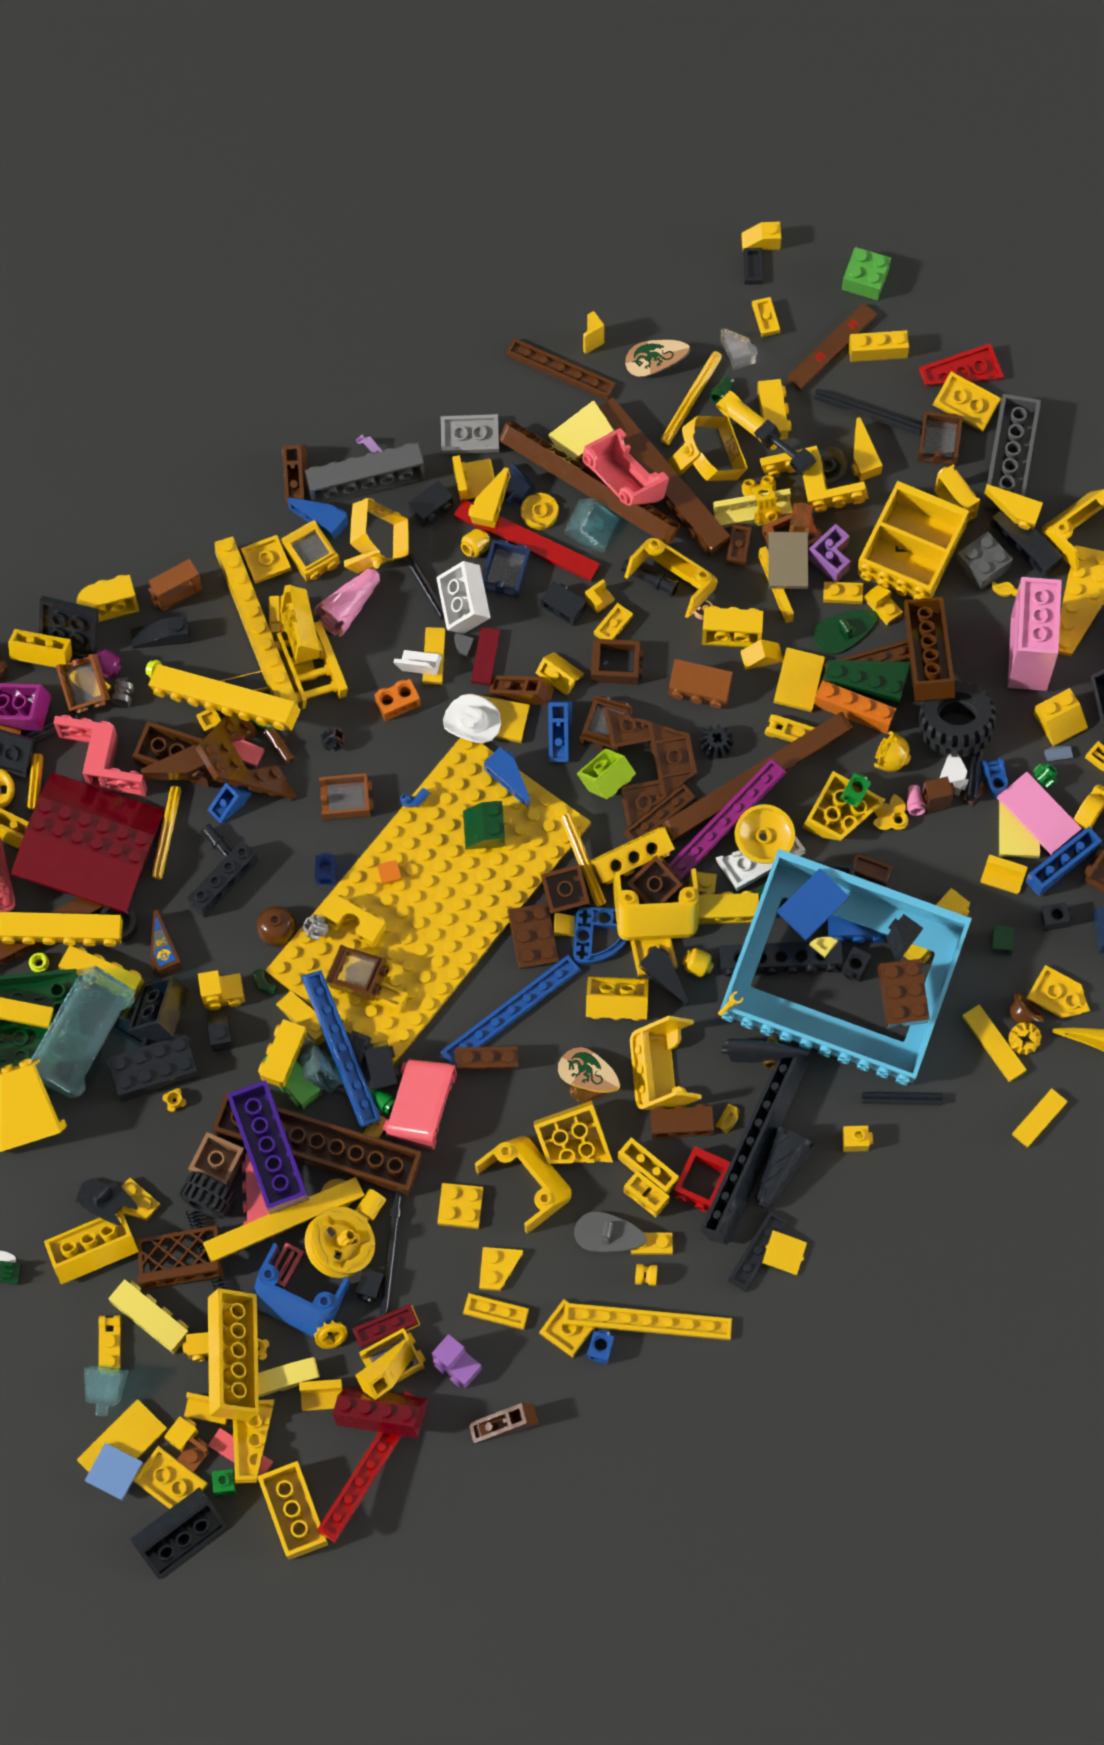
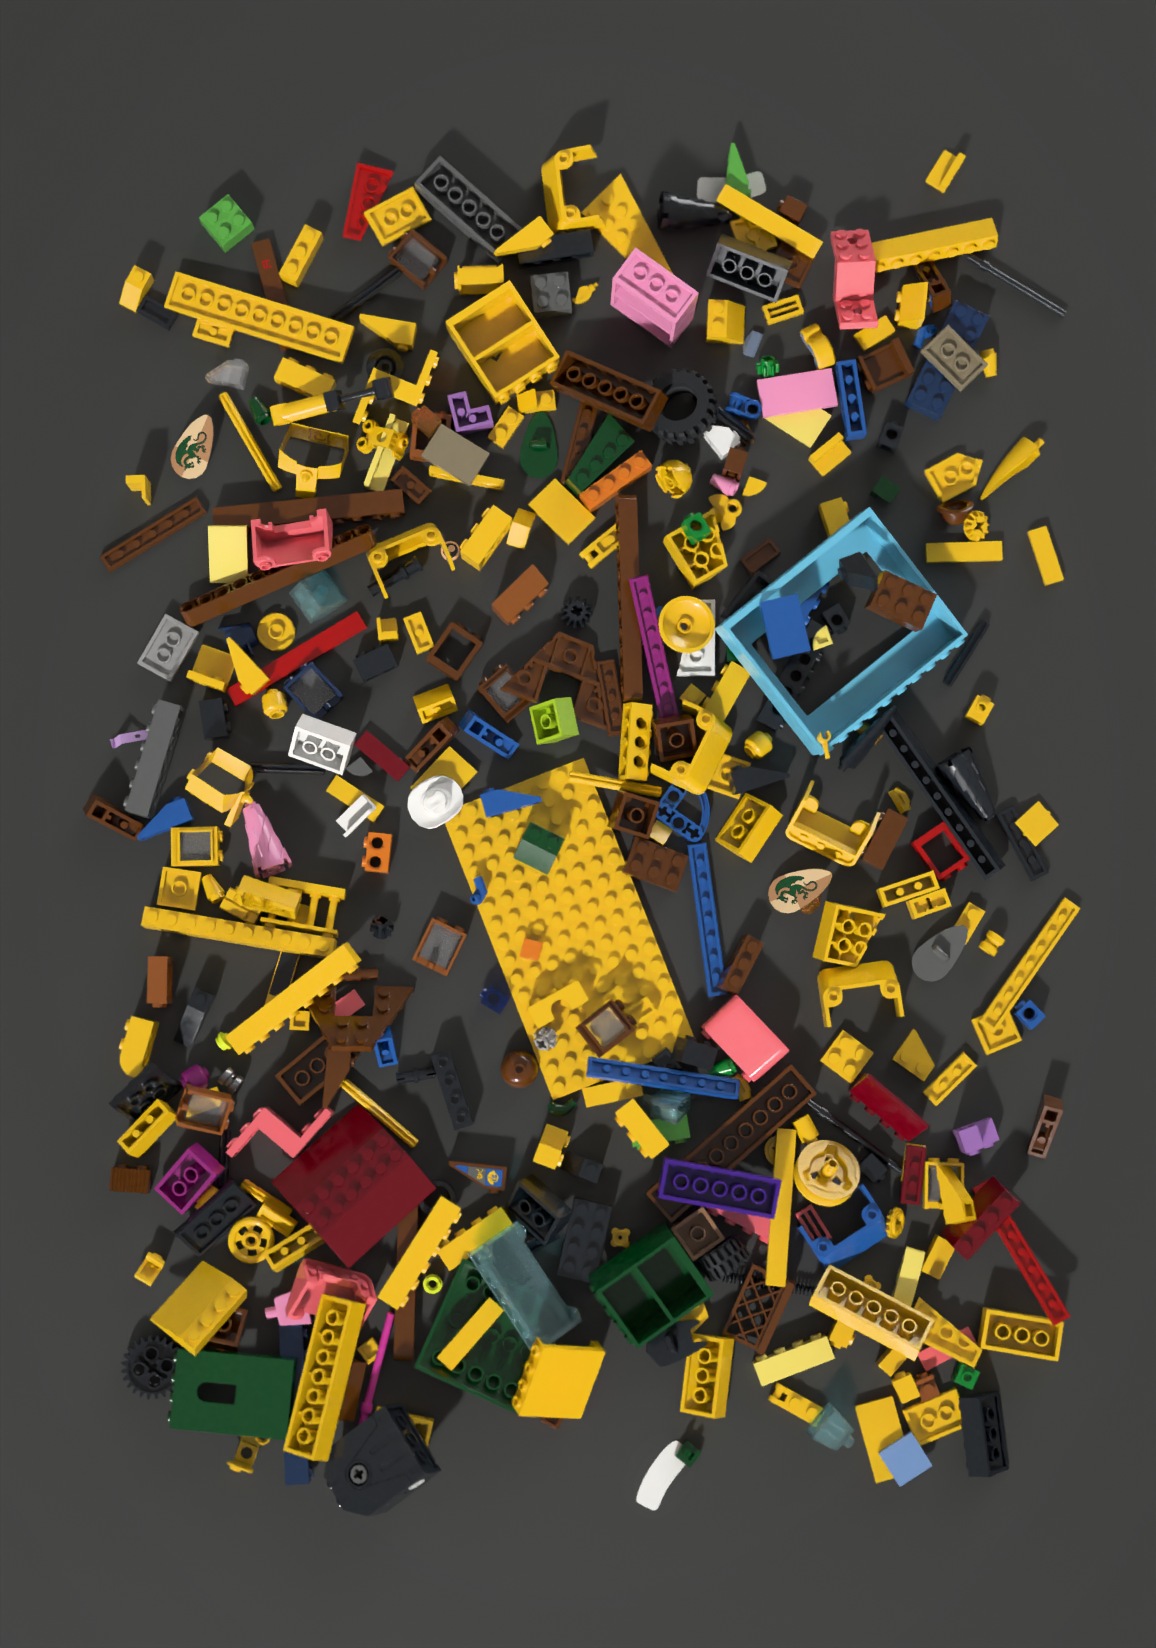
camera: 70 degrees left, 15 degrees up
(22, 798) = (277, 1219): none -> yellow tile
(143, 1141) = (649, 1286): none -> dark green container
(278, 586) = (212, 888): none -> yellow cone
(434, 1263) = (887, 1107): none -> dark red slope
(803, 344) = (259, 317): none -> yellow plate
(930, 827) = (753, 486): none -> yellow tile

